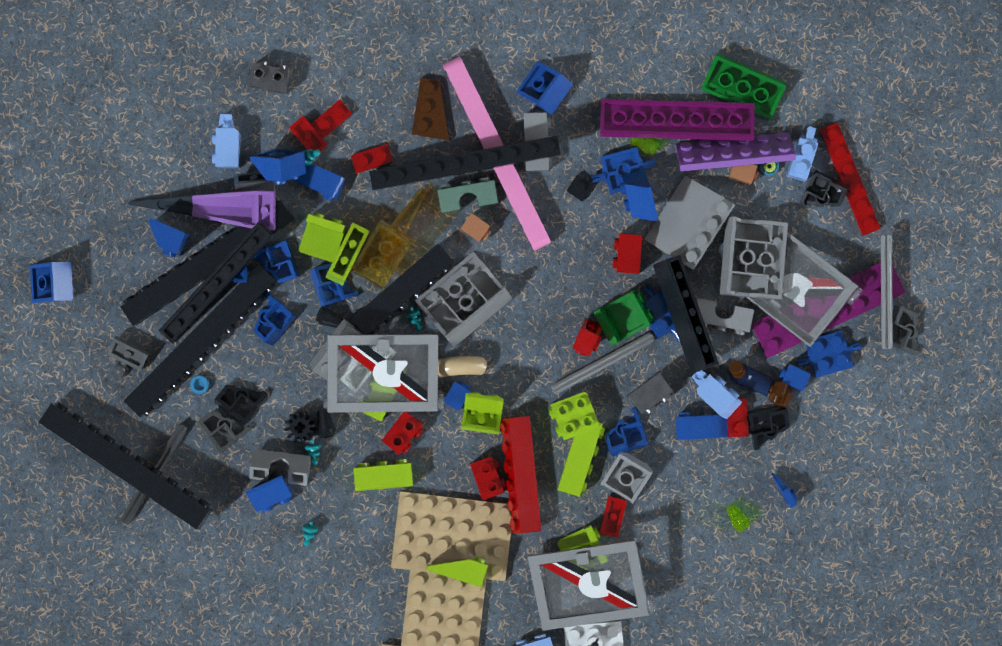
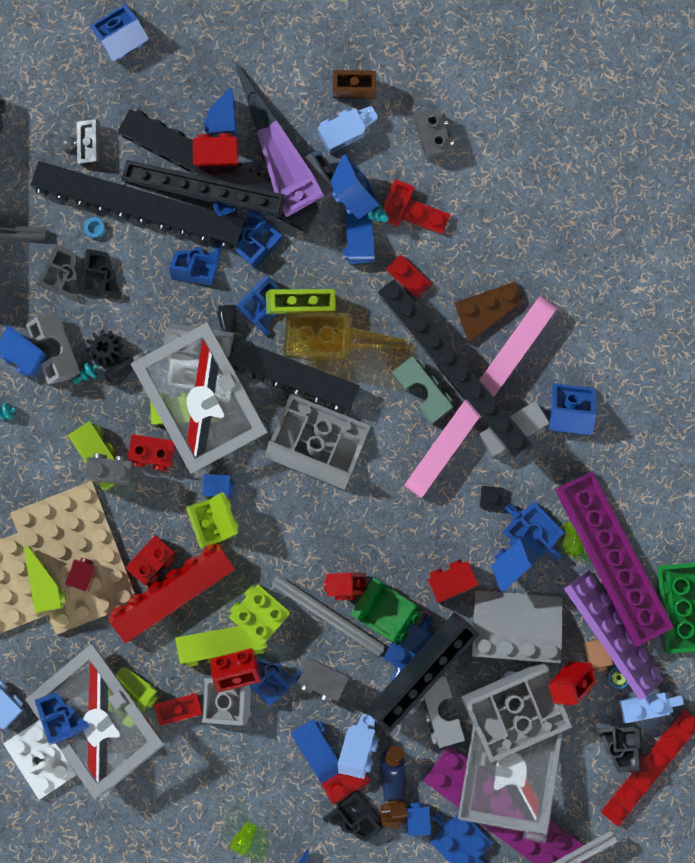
camera: 65 degrees right, 5 degrees down
(193, 256) = (215, 150): none -> red brick
(195, 118) = (354, 84): none -> reddish brown brick
(322, 237) = (304, 268): lime bracket -> none
(398, 477) = (108, 470): none -> flat silver brick
(415, 320) = (272, 405): teal hair -> none
(461, 366) = (249, 473): tan cylinder -> none
(470, 536) = (81, 574): none -> dark red brick
(476, 228) = (395, 415): nougat brick -> none
(572, 611) = (58, 719): none -> blue slope
(607, 456) = (235, 670): none -> red brick
(755, 204) = (572, 683): none -> red brick

